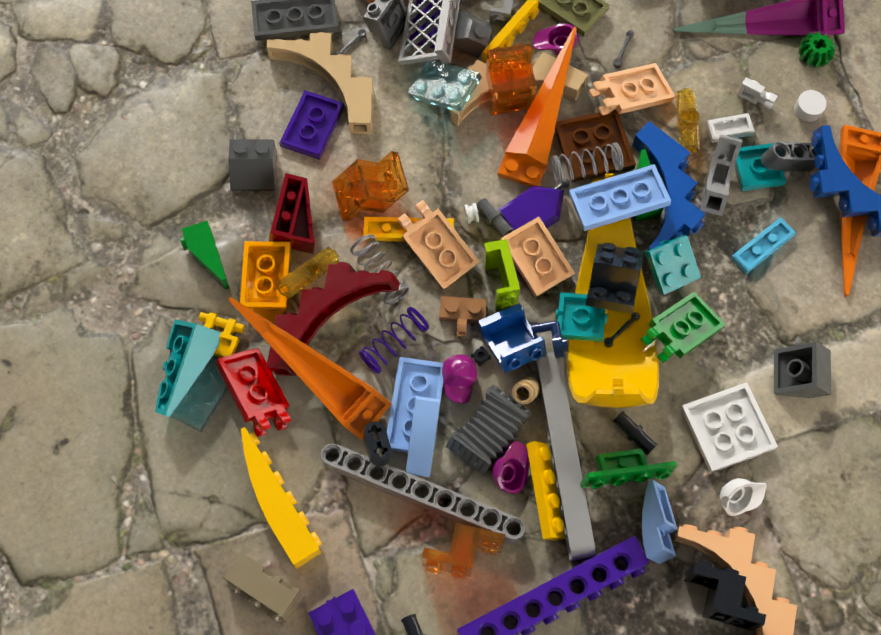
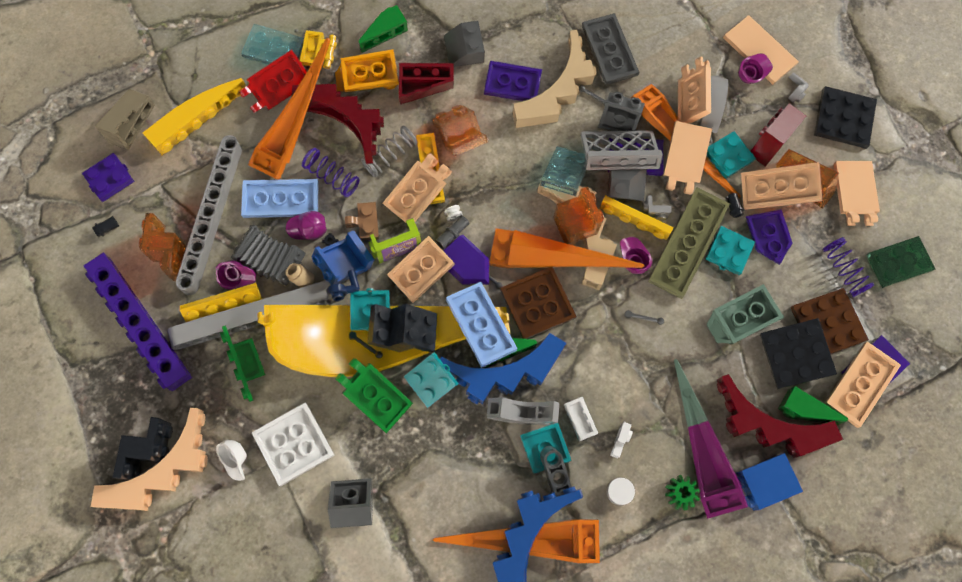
camera: 75 degrees right, 5 degrees up
(190, 351) = (298, 32): teal wedge -> none
(300, 278) = (365, 91): clear yellow piece -> none
(372, 444) = (242, 176): black beam -> none
(423, 436) = (246, 202): light blue slope -> none
(618, 162) = (505, 272): light grey piece -> none
(632, 89) = (599, 328): light nougat tile -> none
(635, 432) = (274, 374): black pin -> none
(657, 524) = (202, 392): light blue slope -> none
(687, 110) = (590, 377): clear yellow piece -> none
(763, 245) = (469, 460): medium azure tile -> none

